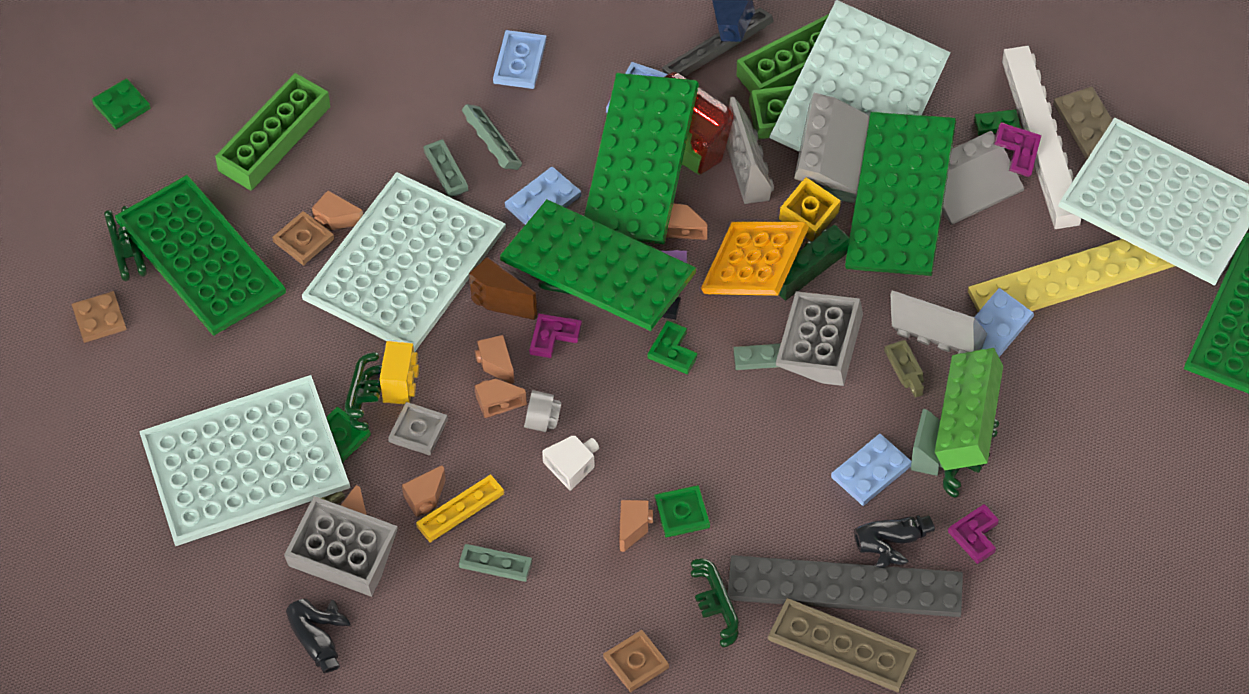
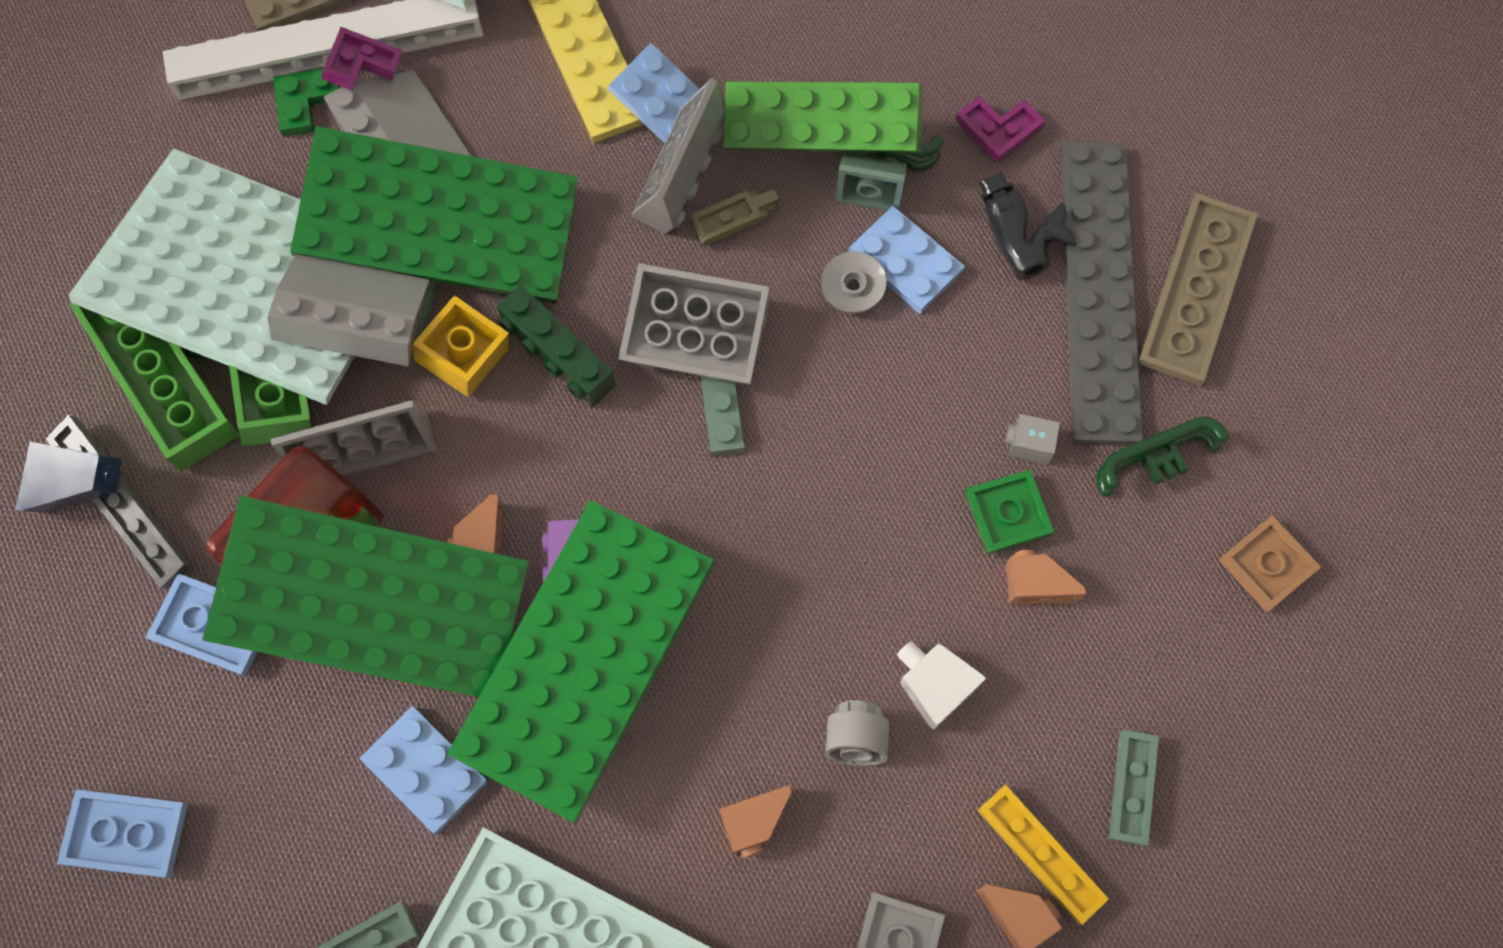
camera: 95 degrees left, 15 degrees up
(492, 137) = (293, 869): sand green plate -> none
(498, 397) = (829, 812): nougat slope -> none
(501, 291) = (627, 825): reddish brown slope -> none
(550, 329) = (691, 736): magenta plate -> none
(668, 351) = (728, 543): green plate -> none
(731, 529) = (1032, 439): none -> light grey brick
(754, 258) = (560, 418): light orange plate -> none
(855, 425) = (857, 269): none -> light grey dish

